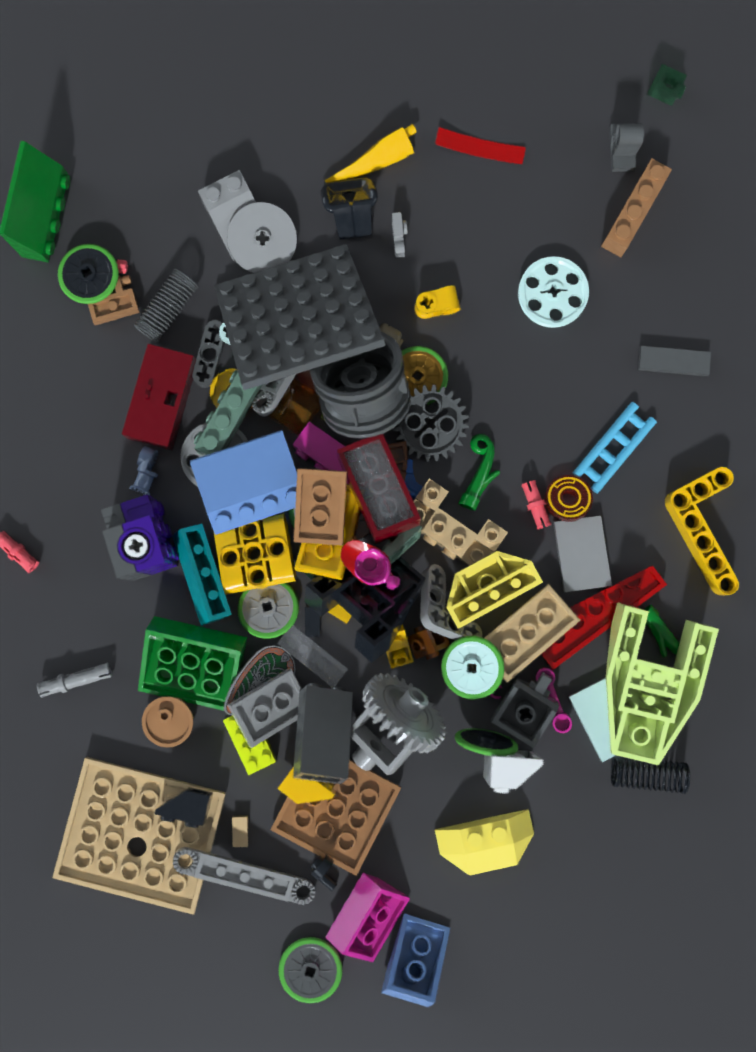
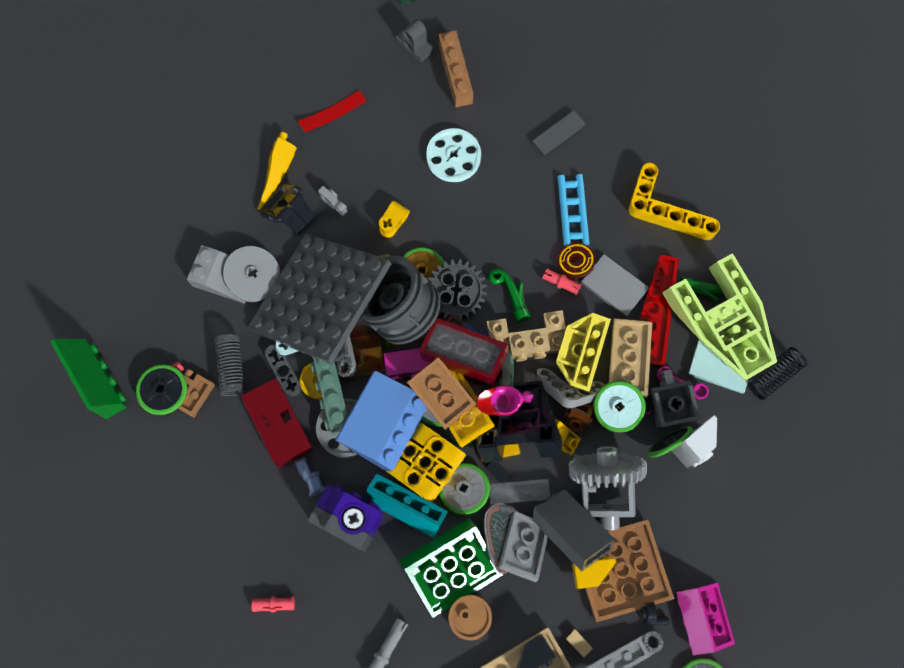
camera: 45 degrees left, 10 degrees down
(252, 758) = (543, 588): neon yellow piece -> none
(416, 961) = (759, 616): medium blue slope -> none
(486, 842) = (727, 504): light yellow wedge -> none

